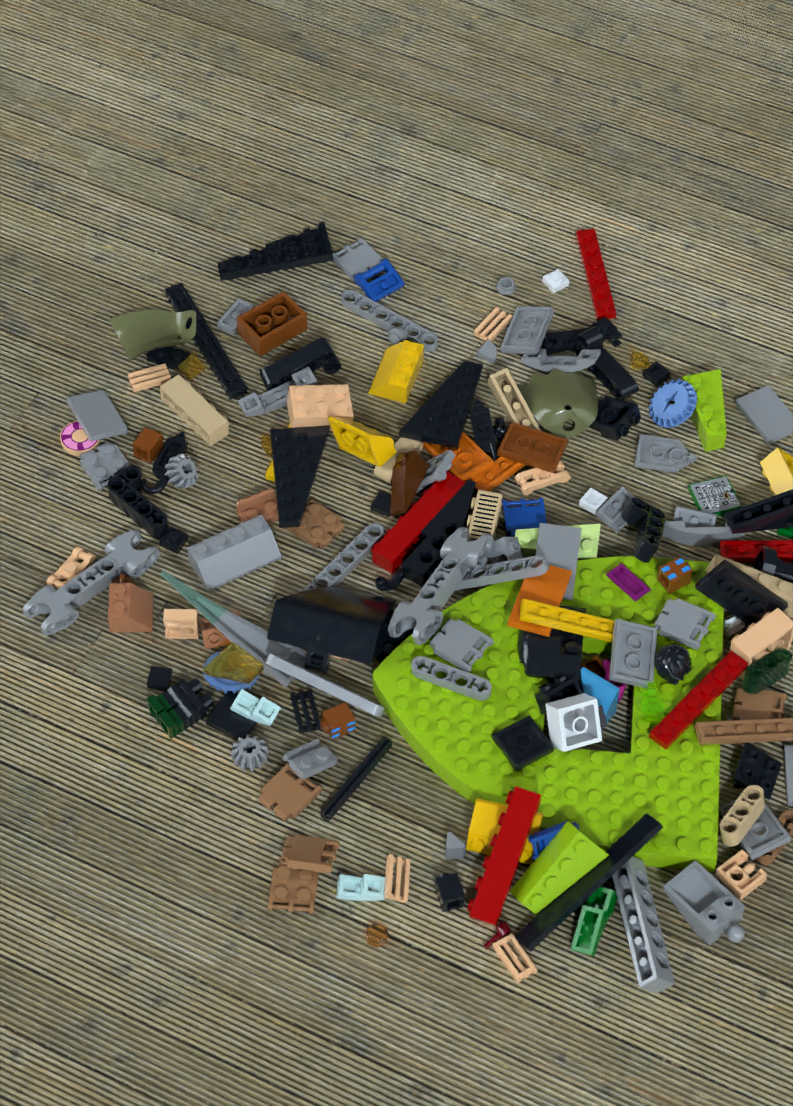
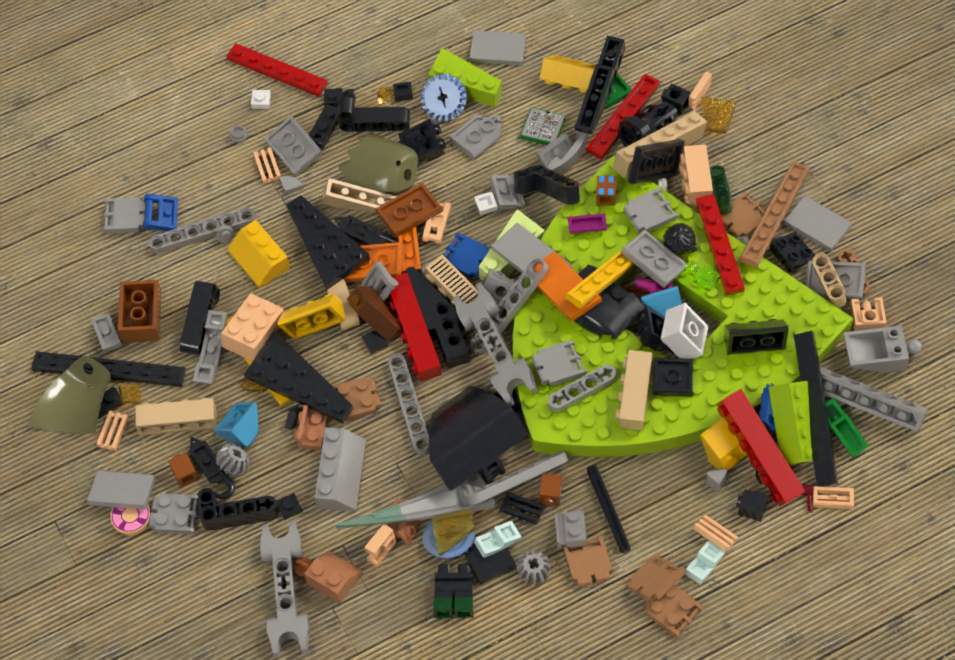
camera: 50 degrees left, 5 degrees up
(71, 567) = (259, 597): light nougat plate -> none
(159, 678) = (413, 592): black tile -> none
(219, 458) = (239, 424): none -> dark azure slope
(258, 487) = (292, 418): none -> black tile
(286, 253) = (74, 258): black wing -> none
(376, 935) = (751, 576): clear orange piece -> none
(390, 584) = (452, 381): black arm -> none
(481, 719) = (635, 390): none -> tan brick
(501, 428) = (371, 220): black arm -> none
(564, 363) = (350, 139): light grey slope -> none
(618, 782) = (756, 336): none -> slope

